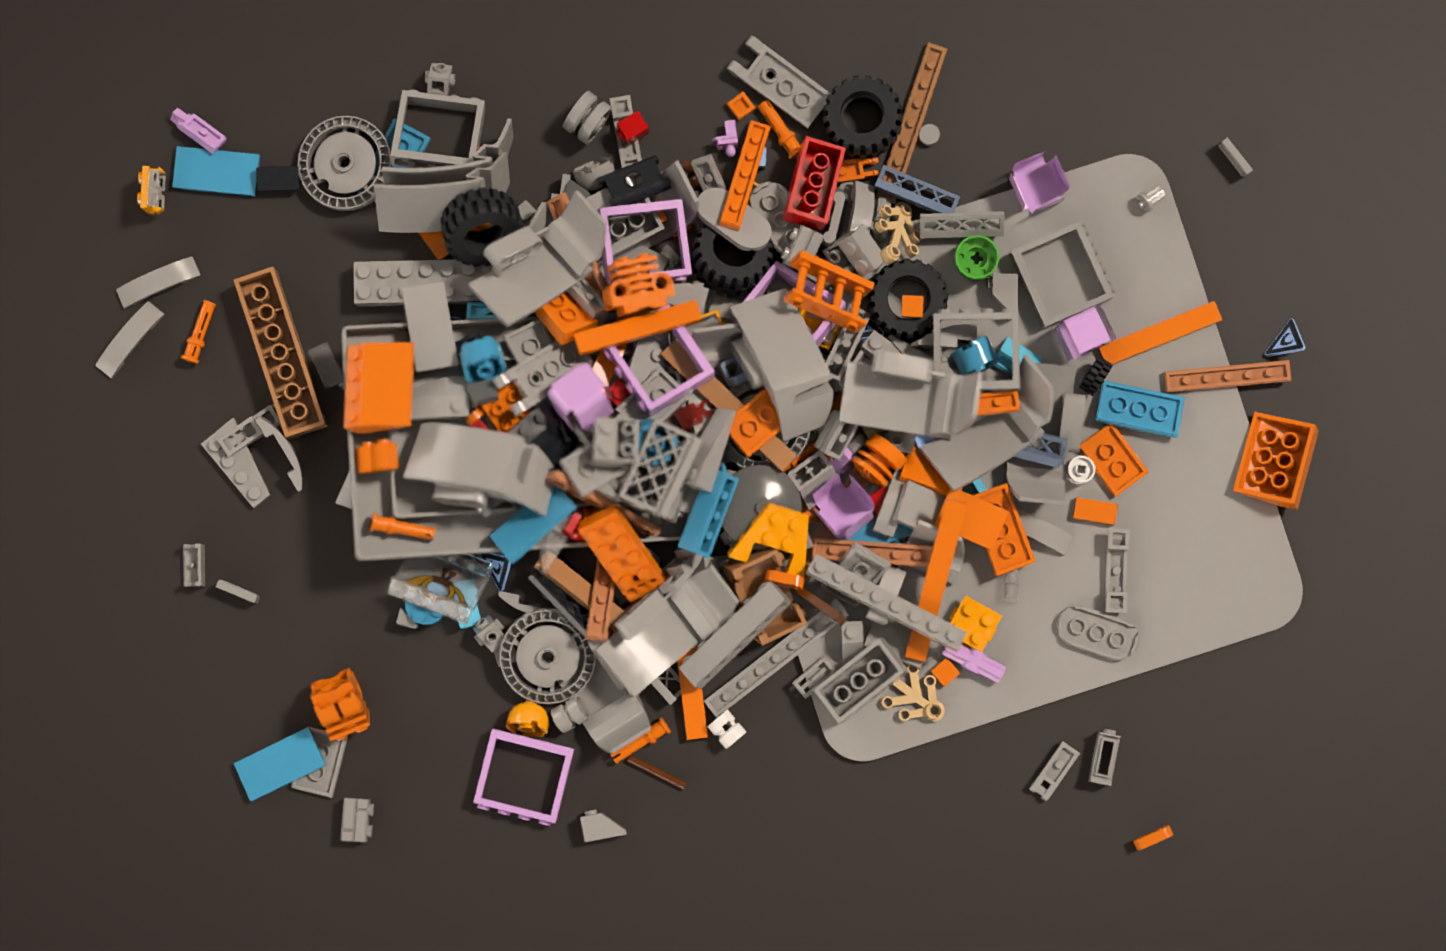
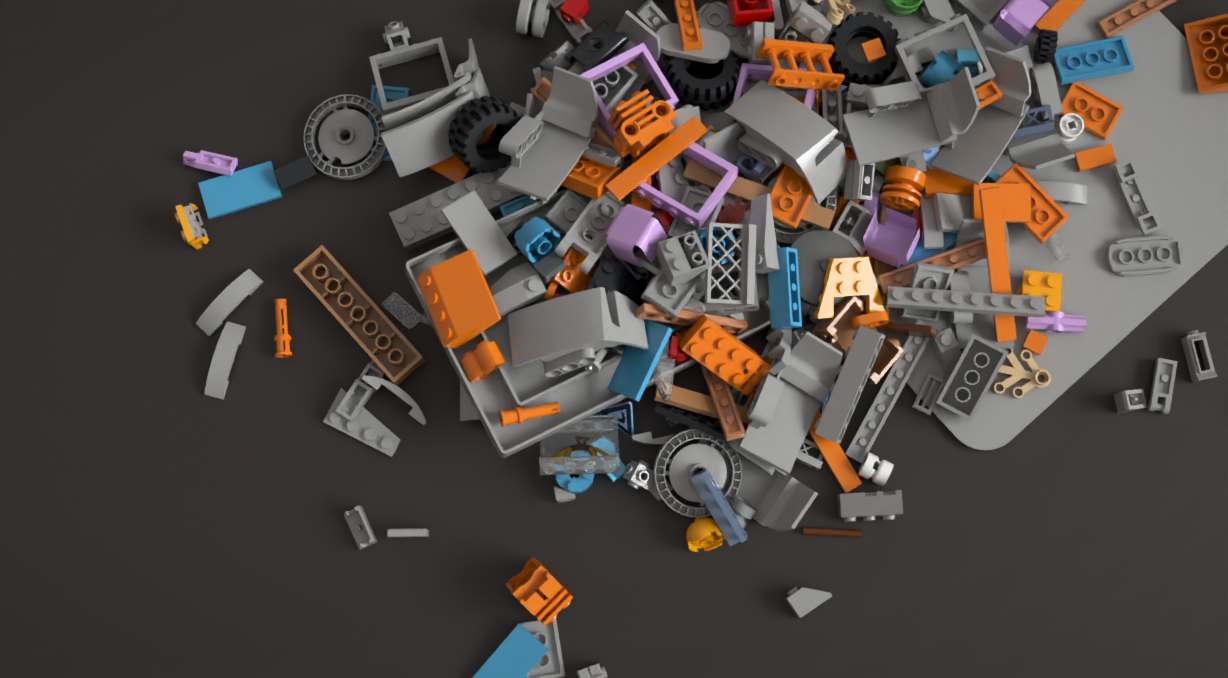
camera: 25 degrees left, 5 degrees down
(506, 809) = (736, 616): lavender window -> none
(552, 700) = (719, 507): none -> sand blue fence
(657, 730) = (822, 492): orange pin -> none
(703, 762) = (870, 505): none -> light grey wedge
(1016, 772) = (1130, 400): none -> light grey slope

